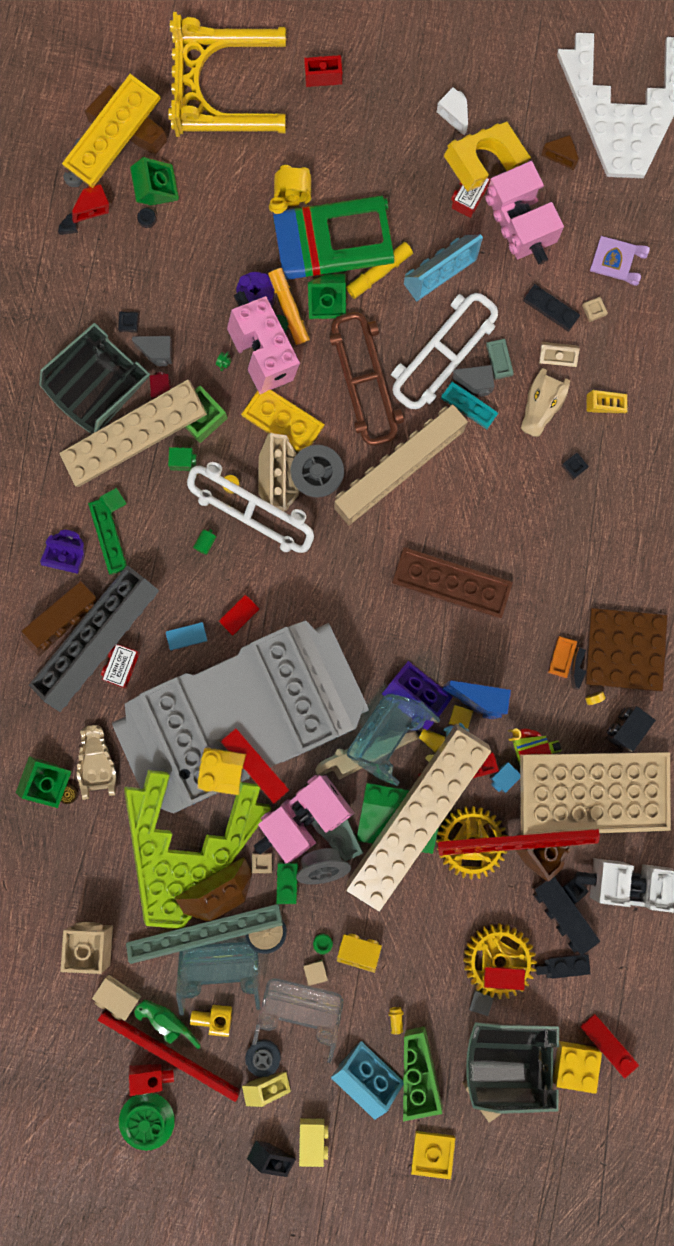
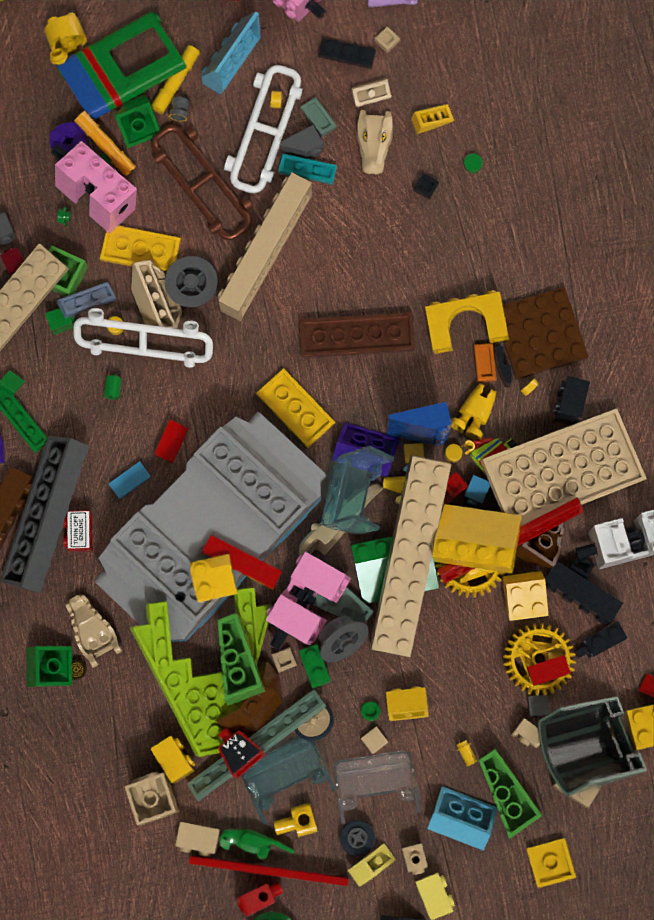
camera: 20 degrees left, 5 degrees down
(122, 917) = (172, 759): none -> yellow brick
(184, 936) = (238, 752): none -> torso
(212, 449) = (86, 300): none -> sand blue tile
(215, 854) = (239, 668): none -> bright green wedge
(308, 1092) = (411, 851): none -> tan brick
(367, 629) = (295, 408): none -> yellow tile
(372, 299) = (179, 108): none -> dark grey wheel
(460, 1026) = (528, 733): none -> tan brick
(466, 326) = (276, 99): none -> yellow piece
(487, 829) = (477, 538): none -> yellow slope
(498, 731) = (453, 453): none -> yellow piece
(511, 897) = (525, 595): none -> yellow brick
(537, 698) = (475, 407): none -> yellow piece
(539, 596) = (441, 316): none -> yellow arch
(628, 461) = (473, 163): none -> green tile

